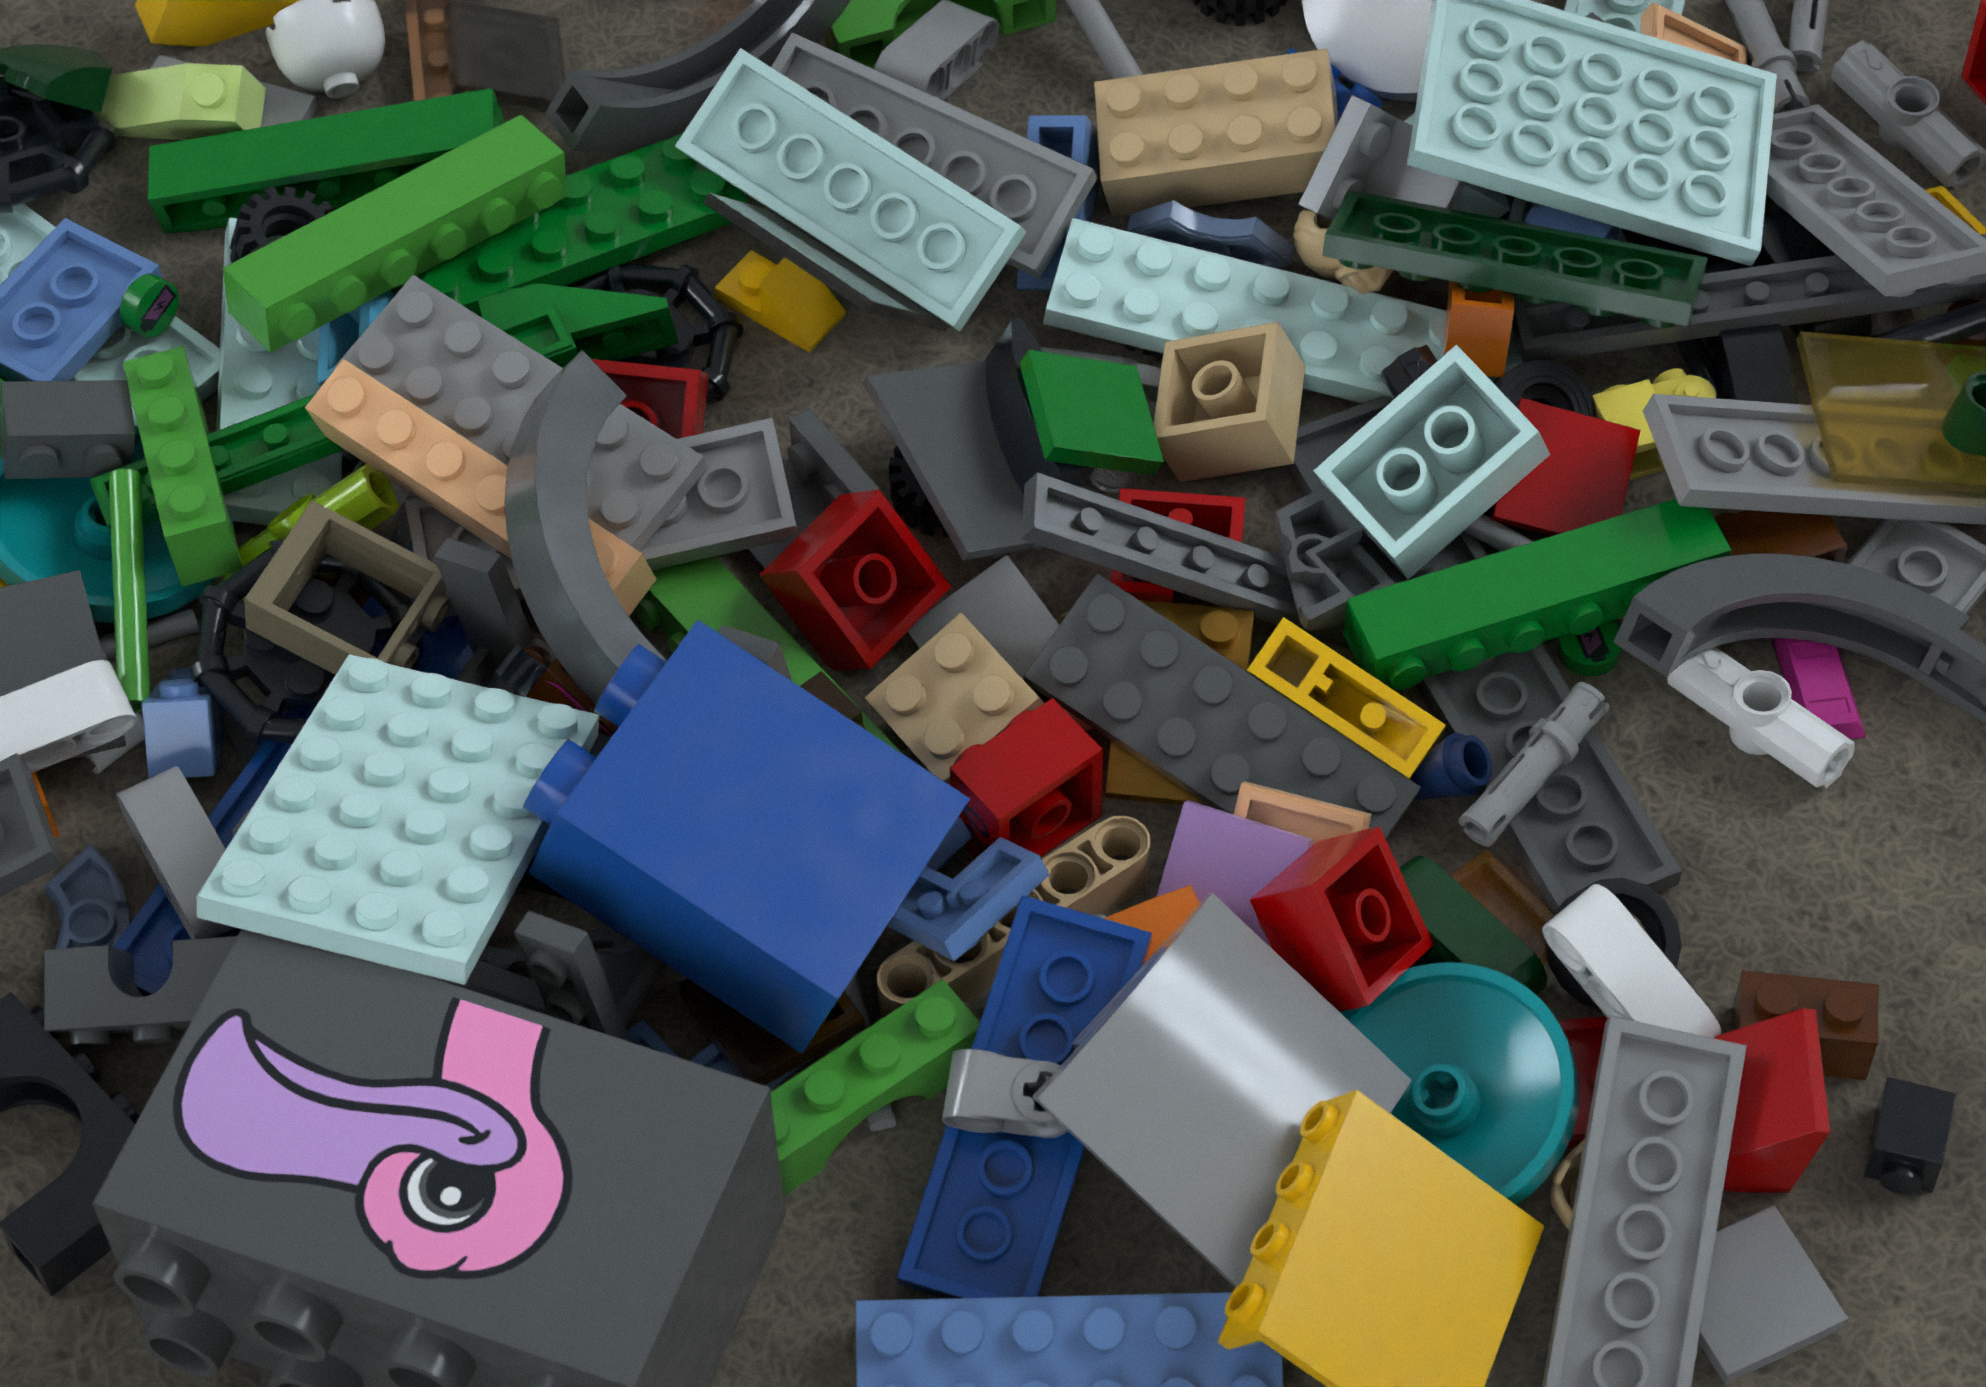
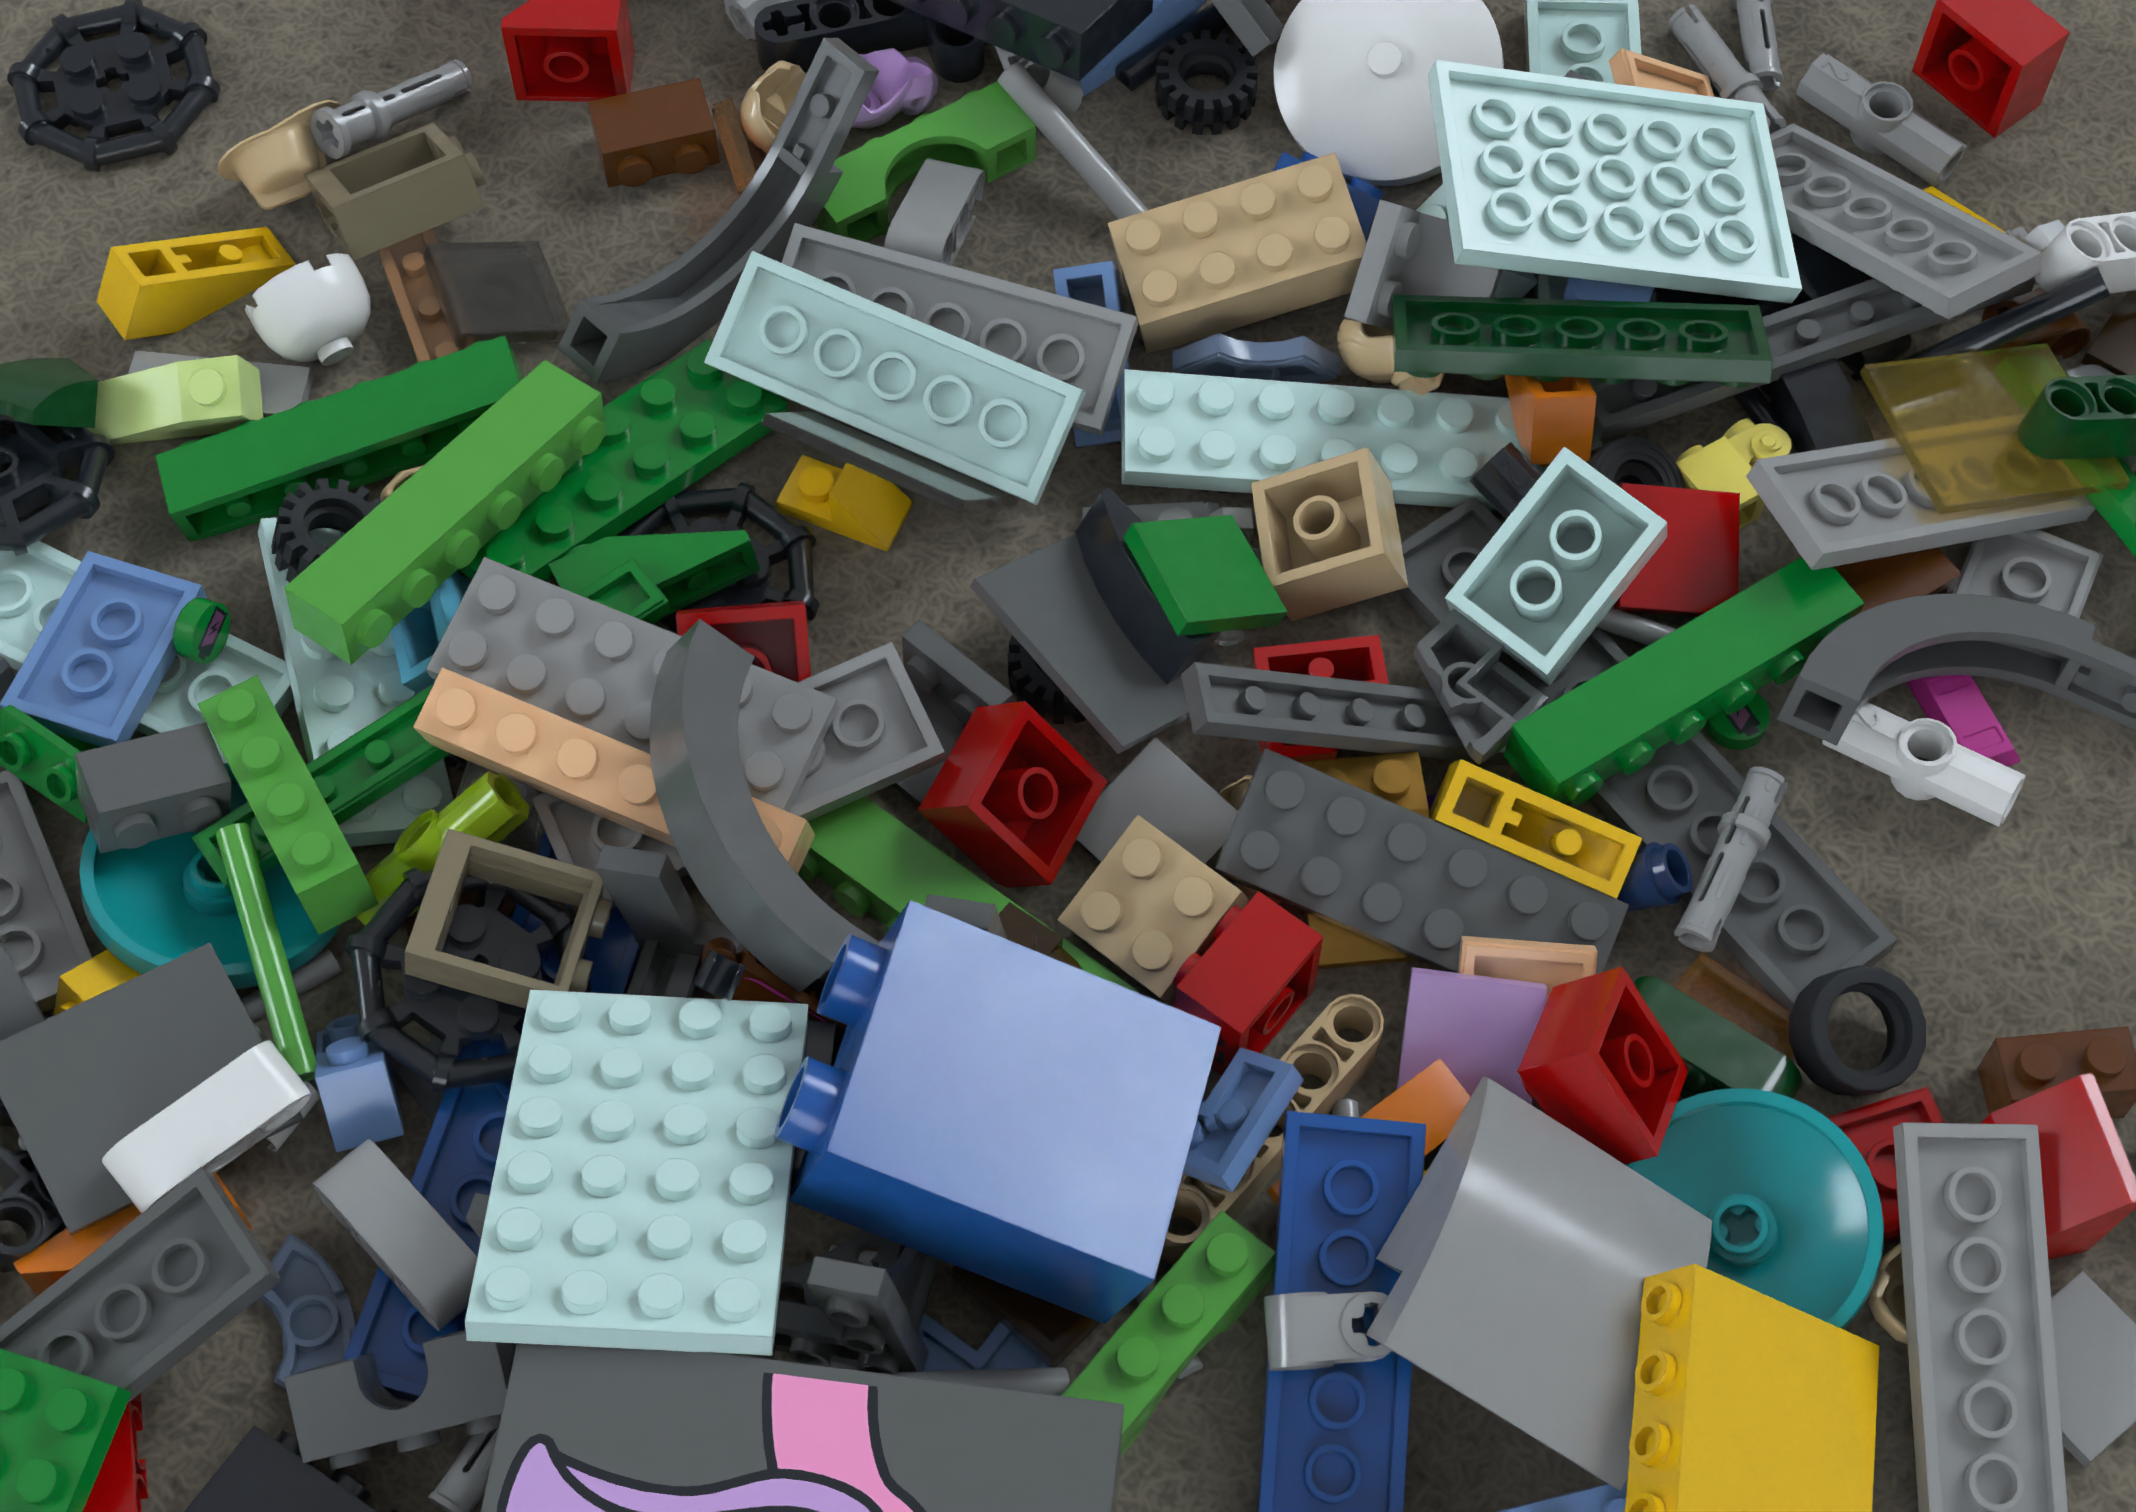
camera: 15 degrees left, 5 degrees up
(1624, 966) = (1890, 1063): white beam -> none

